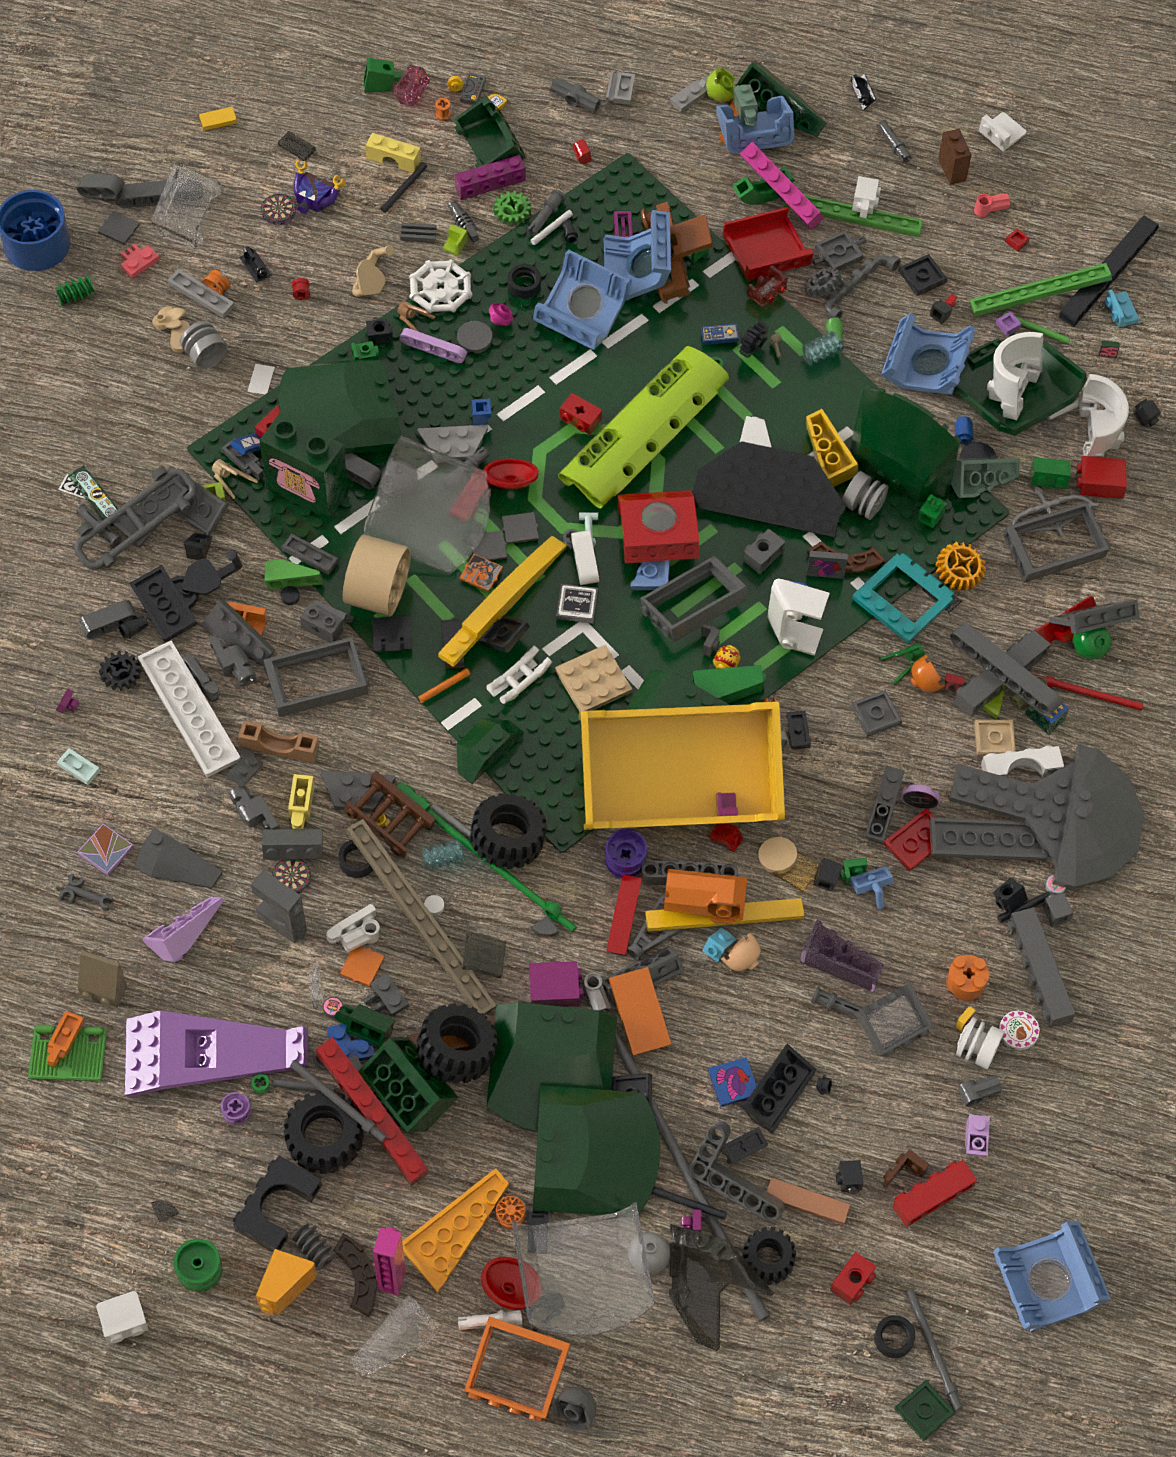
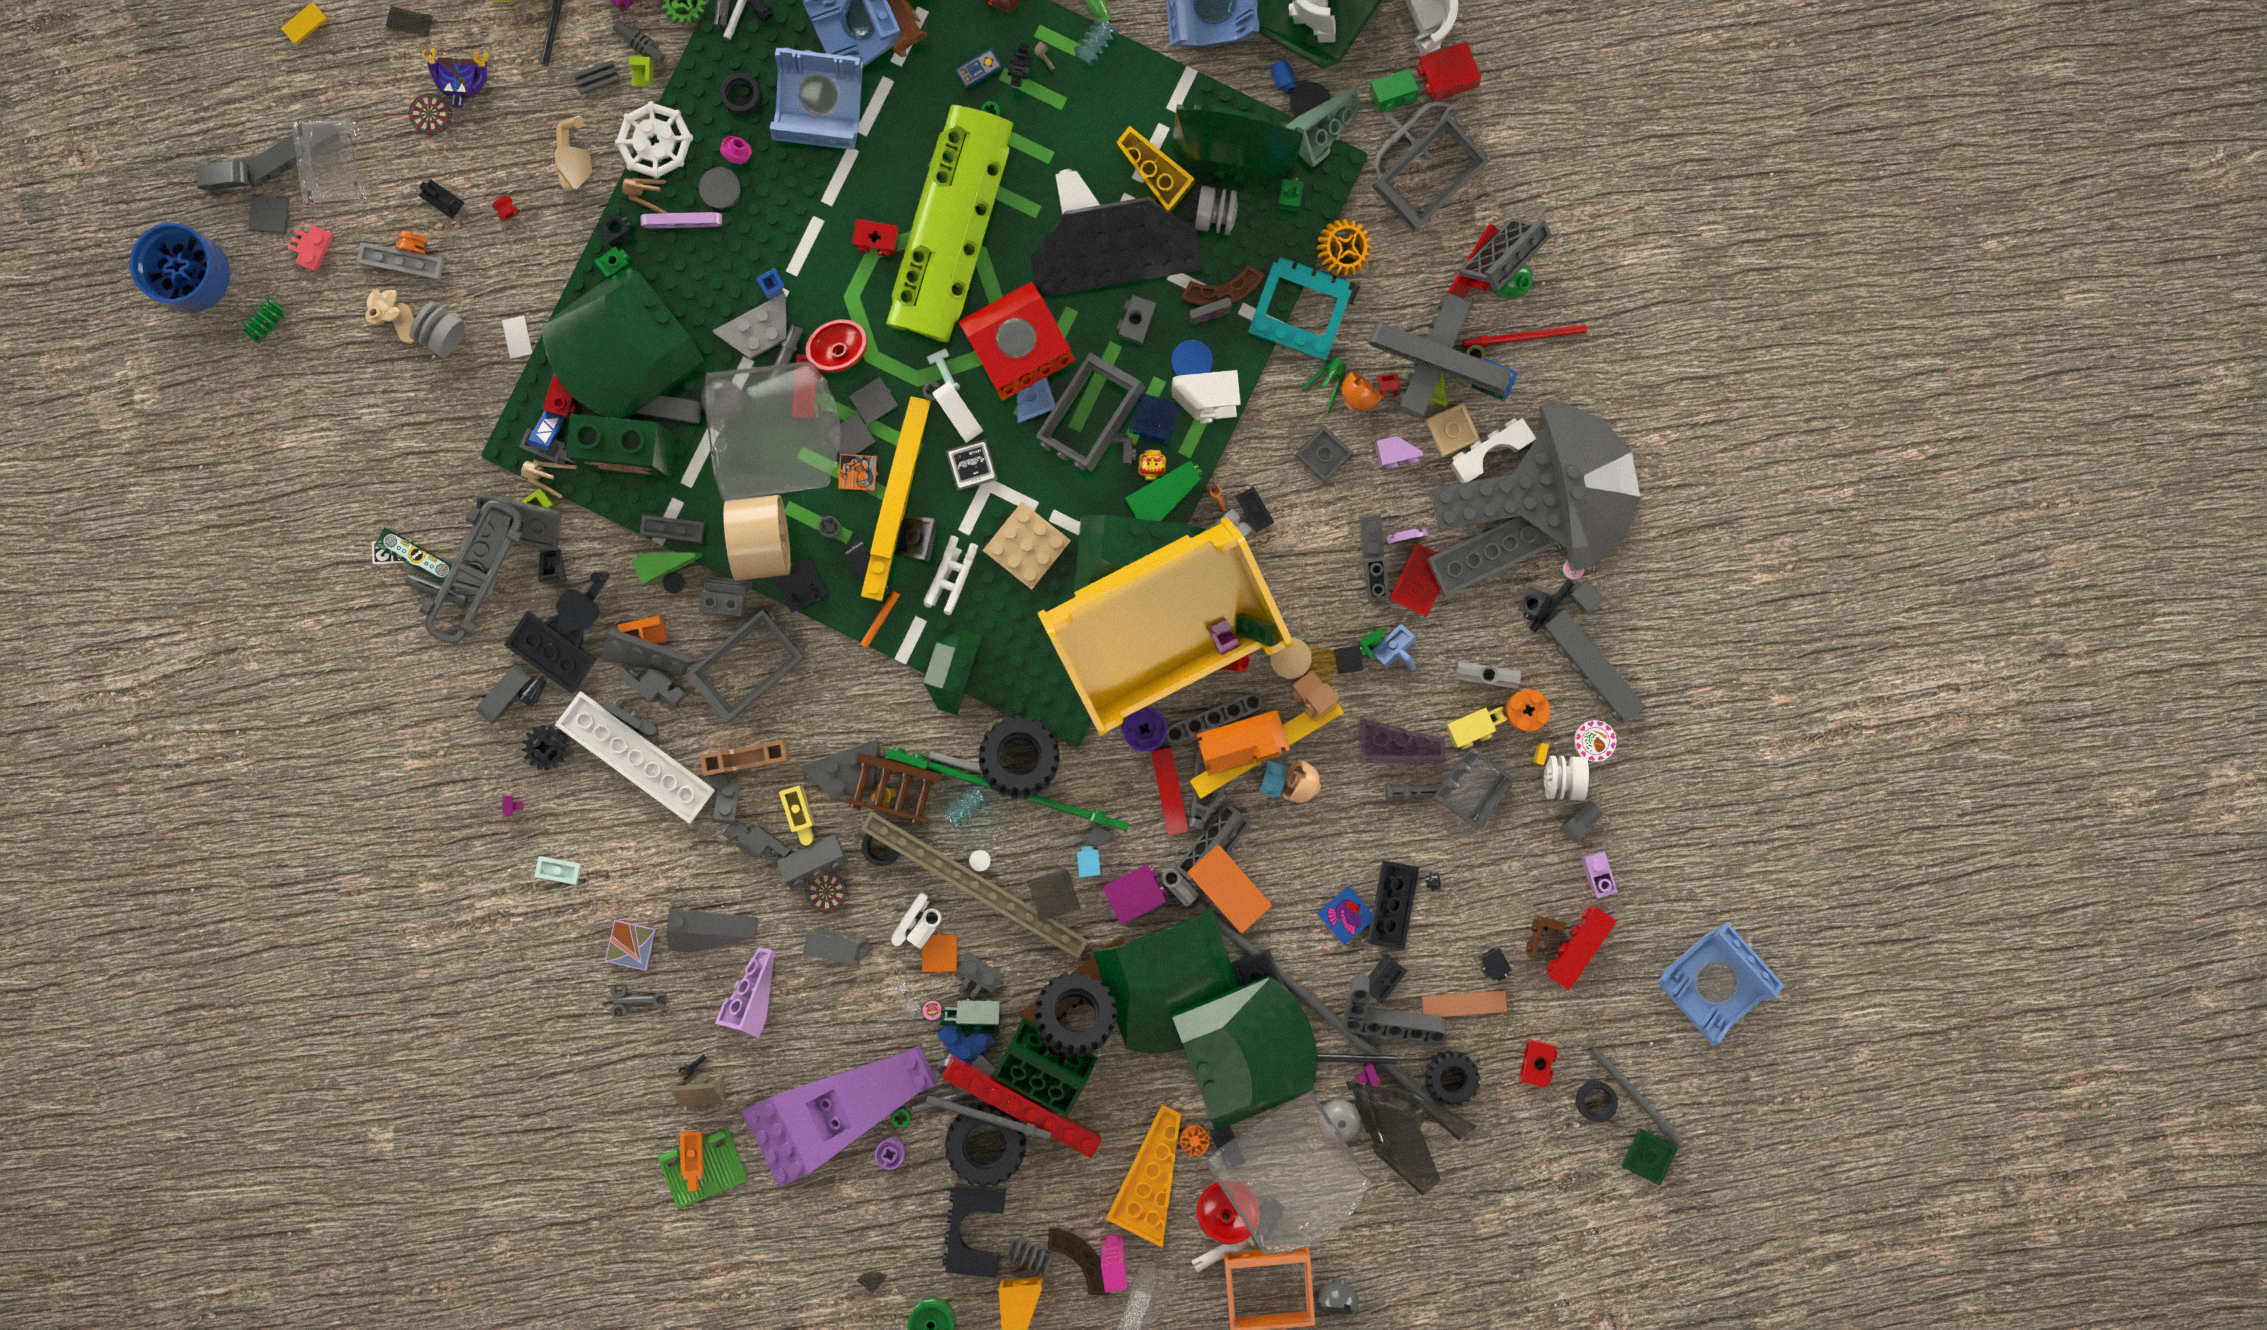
camera: 25 degrees left, 25 degrees up
(438, 600) = (830, 524): none -> dark grey wheel
(527, 943) = (1088, 861): none -> medium azure brick
(744, 627) = (1154, 418): none -> clear blue bracket
(757, 803) = (1255, 629): none -> dark green tile
(786, 888) = (1315, 696): none -> medium nougat brick
(915, 971) = (1474, 726): none -> light yellow brick
(934, 929) = (1474, 673): none -> light grey piece
(939, 733) = (1395, 451): none -> lavender slope

